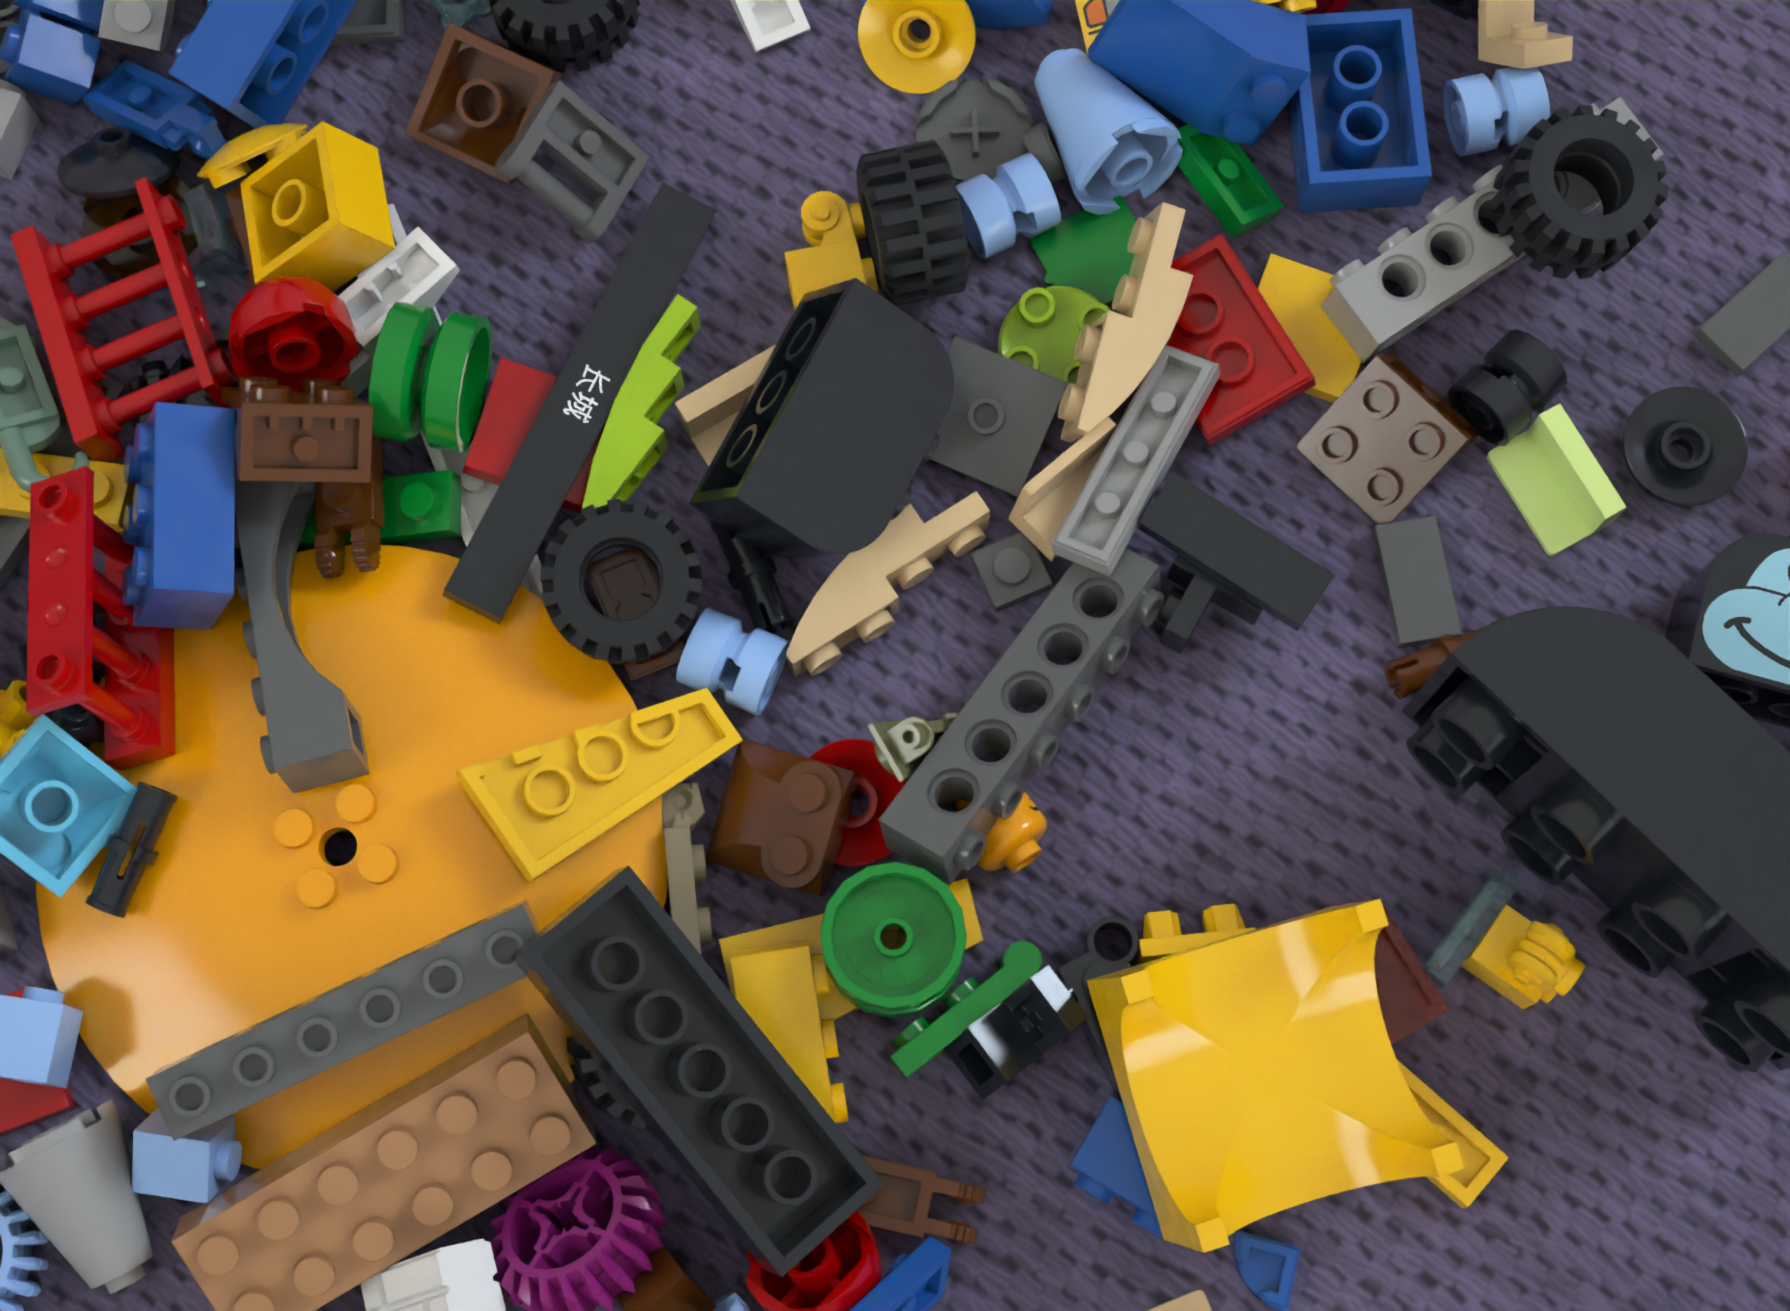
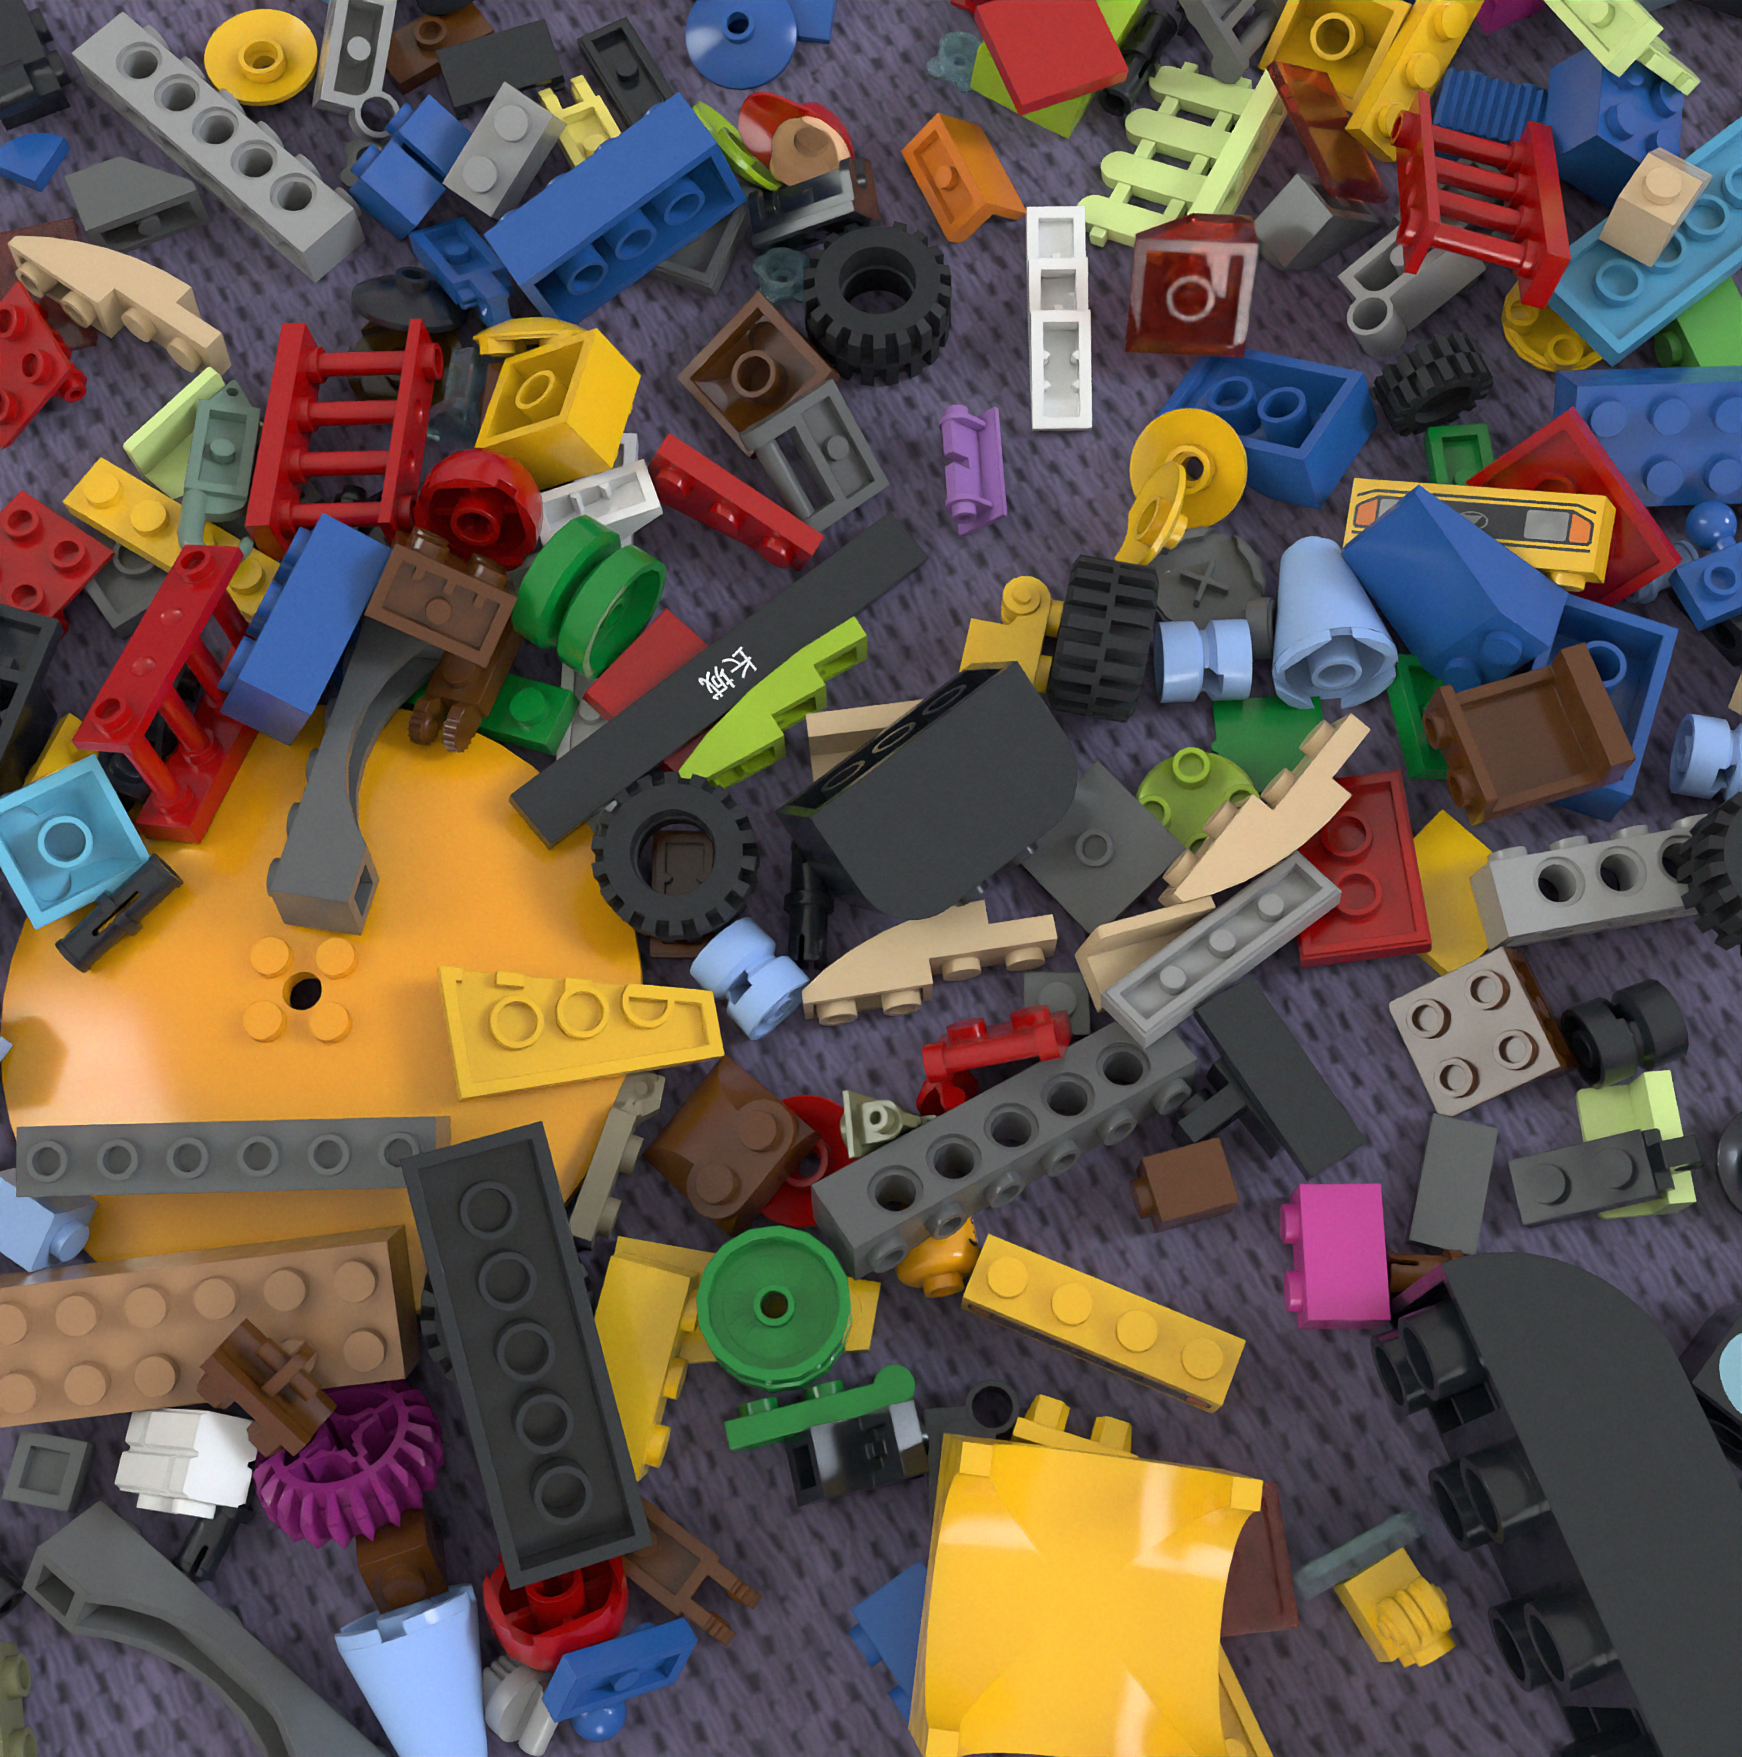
camera: 25 degrees right, 5 degrees down
(484, 1201) = (268, 1387): none -> reddish brown hips
(516, 237) = (727, 504): none -> red wing
(723, 110) = (977, 474): none -> medium lavender hinge
(906, 91) = (1156, 516): none -> yellow dish
(950, 688) = (946, 1095): none -> red plate
(960, 636) = (974, 1045): none -> red plate
(1174, 829) = (1103, 1324): none -> yellow brick
(1192, 680) = (1184, 1186): none -> reddish brown brick
(1324, 160) = (1528, 737): none -> reddish brown panel
(1346, 684) = (1336, 1256): none -> dark pink brick
(1538, 518) = (1601, 1174): none -> black hinge

